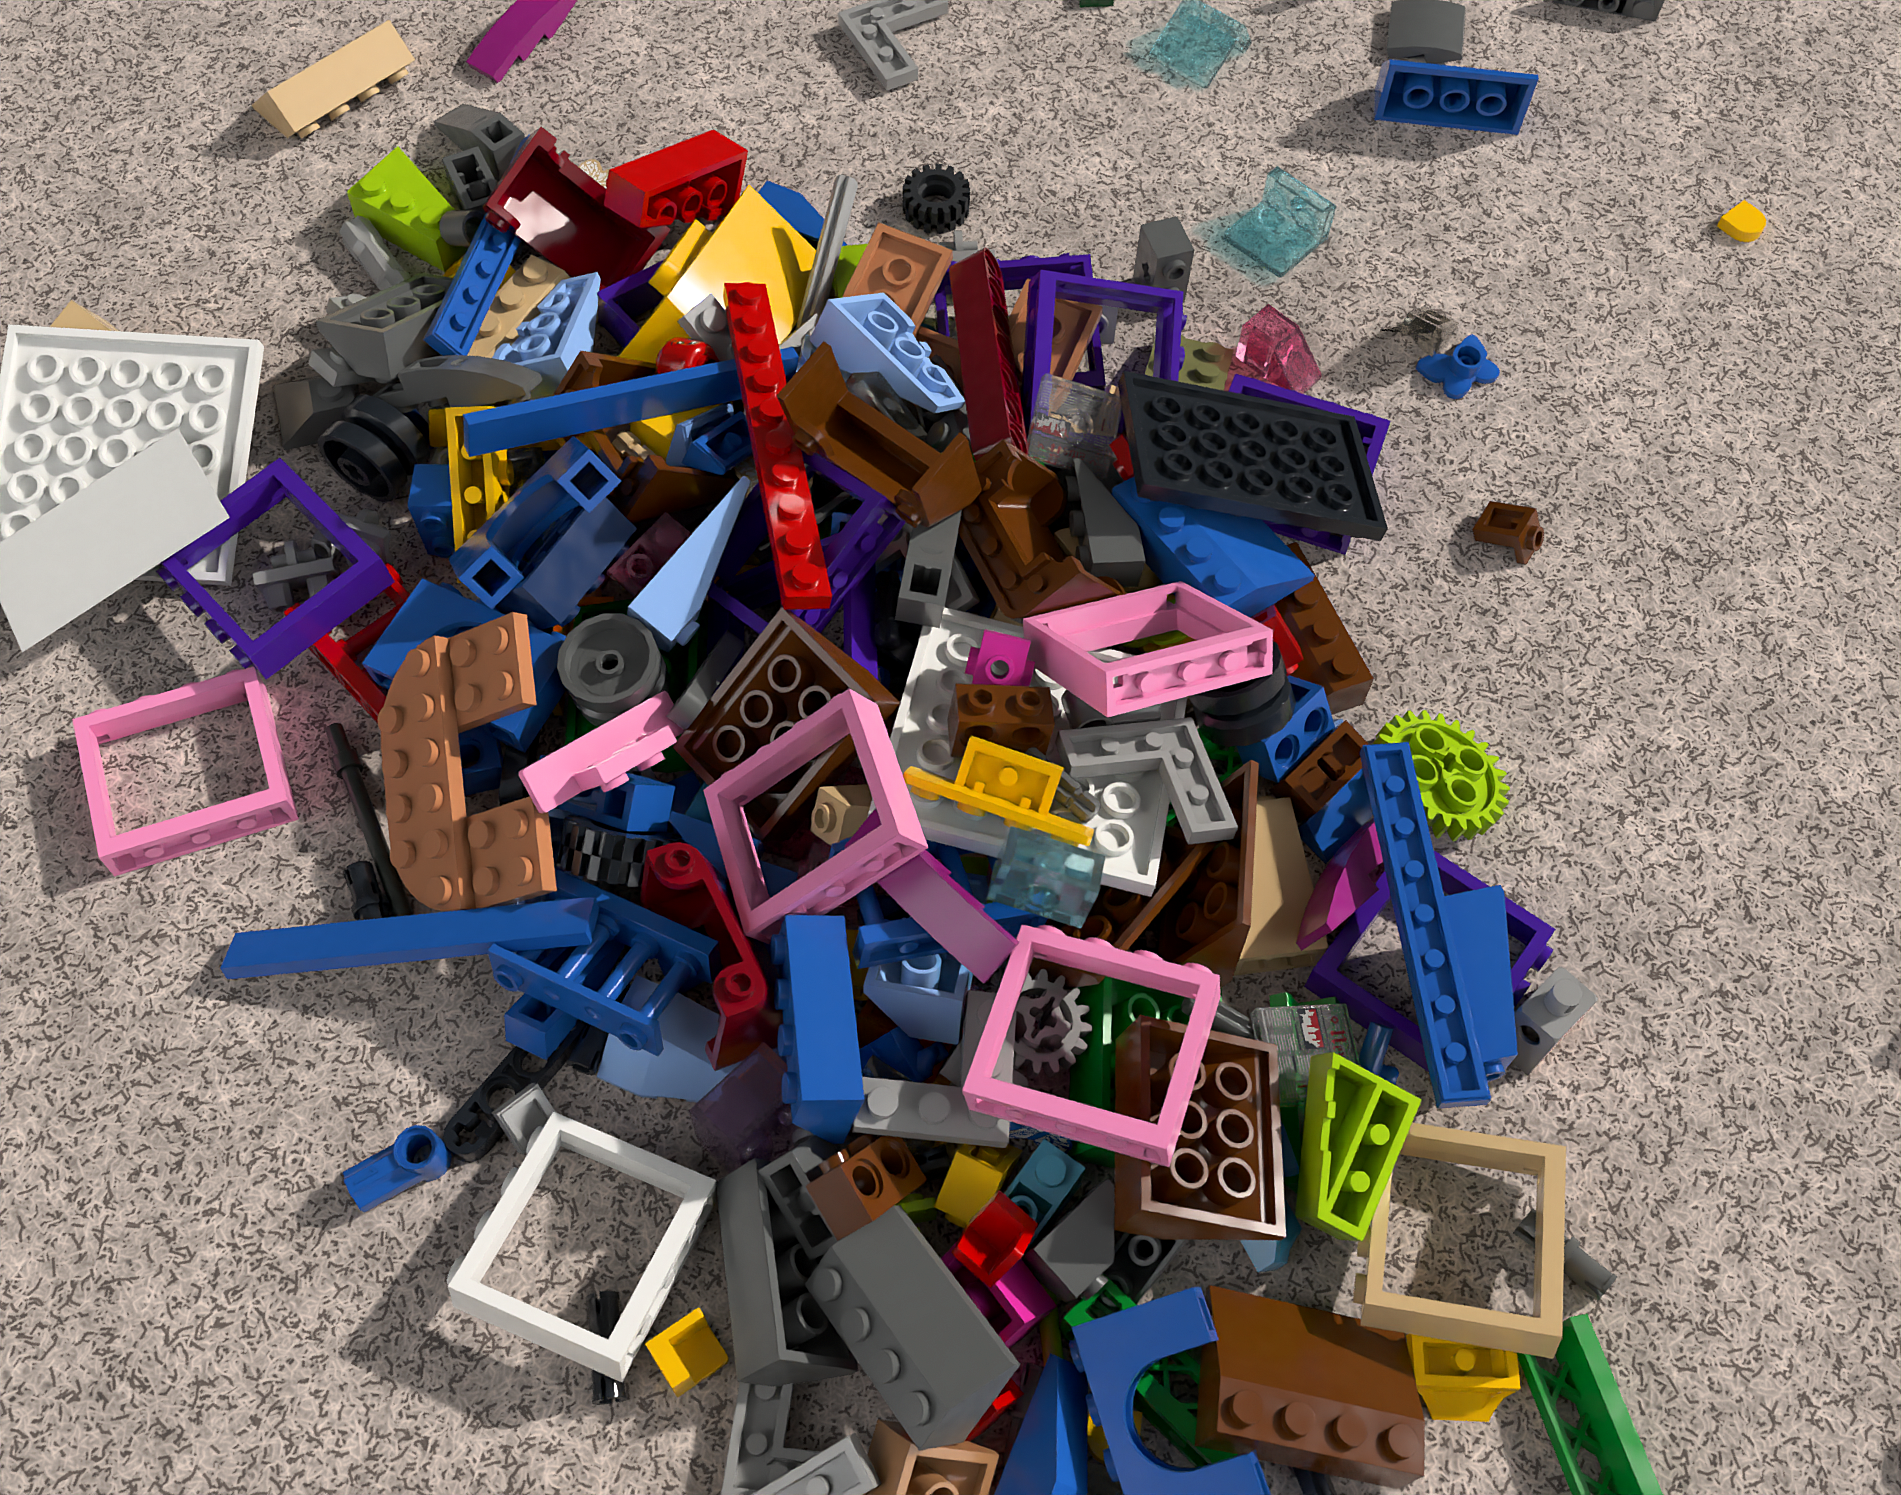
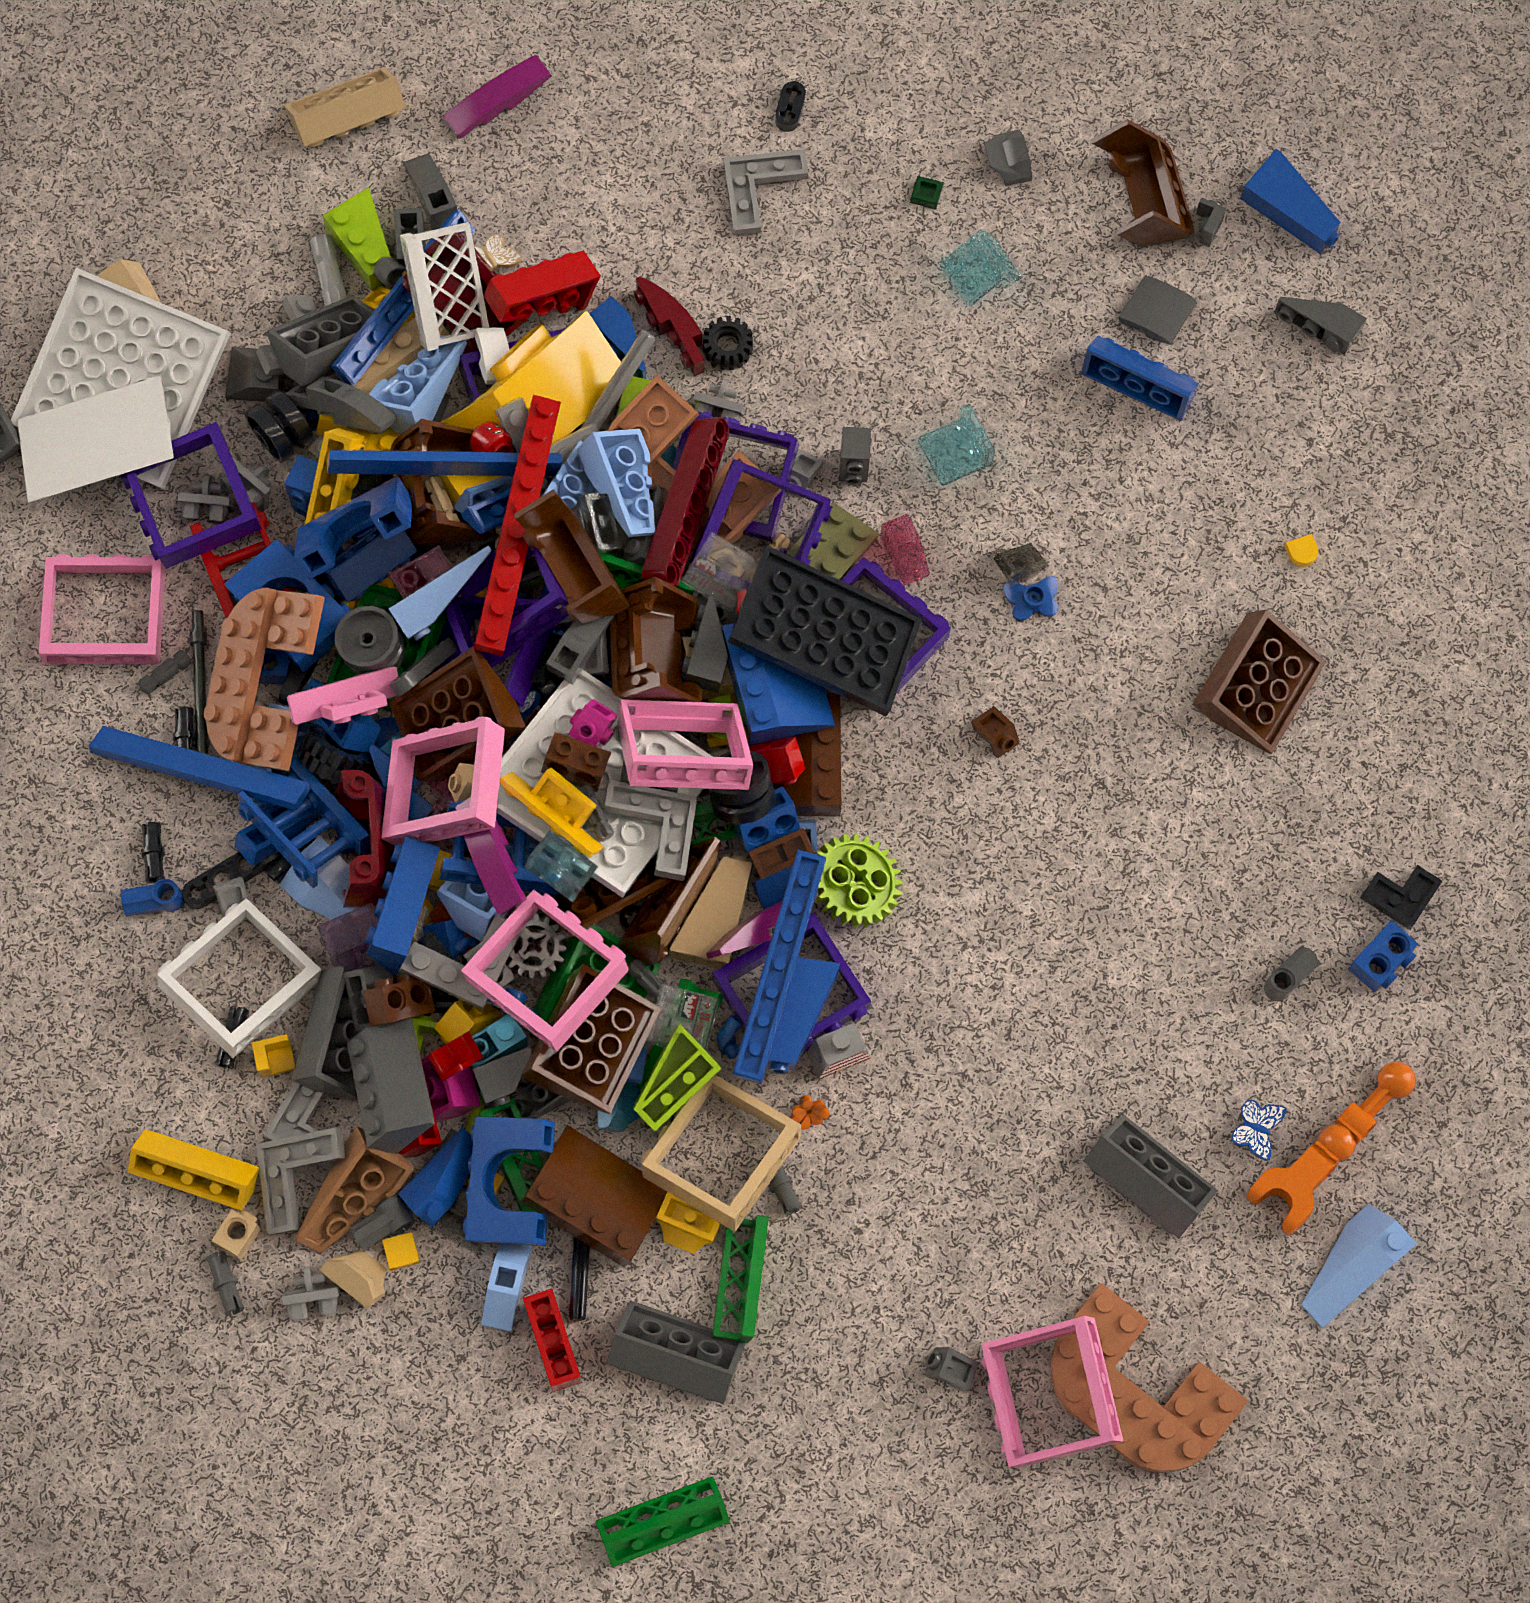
camera: 20 degrees right, 10 degrees up
(309, 826) = (164, 671): none -> dark grey axle
(375, 1095) = (152, 852): none -> black pin
(515, 208) = (420, 284): none -> white fence
(637, 265) = (492, 346): none -> white slope
(875, 197) = (671, 318): none -> dark red slope
(1549, 1122) = (809, 1112): none -> orange plant
(1789, 370) = (1260, 681): none -> reddish brown slope

